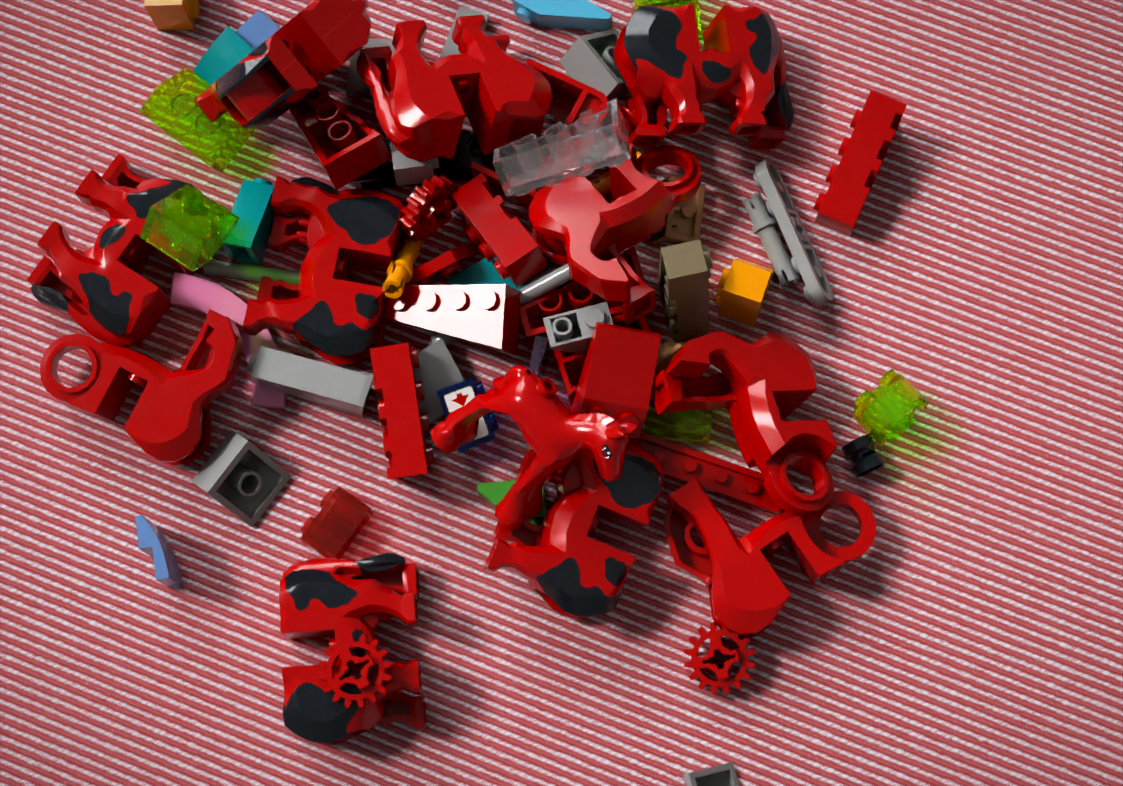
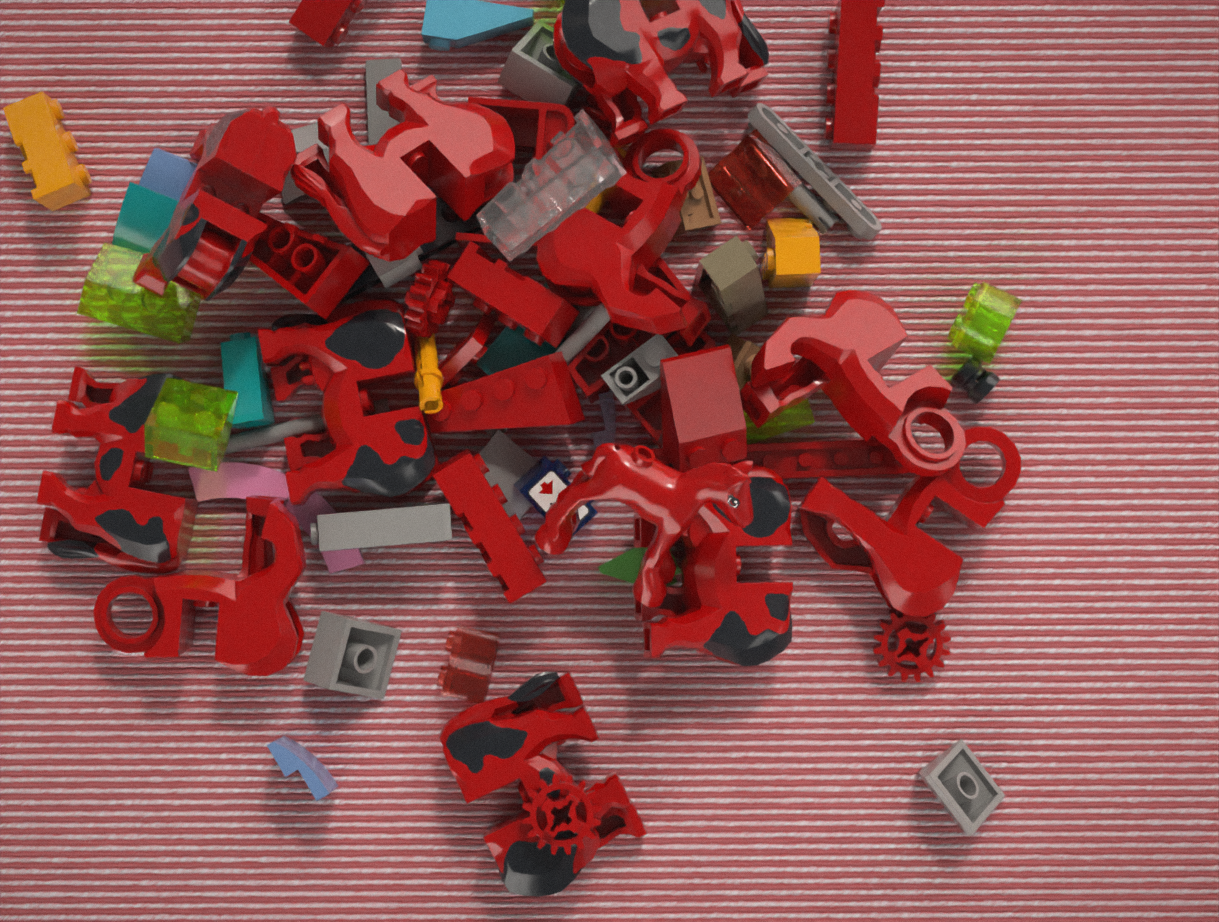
camera: 25 degrees left, 10 degrees up
(739, 218) = (753, 179): none -> clear red slope

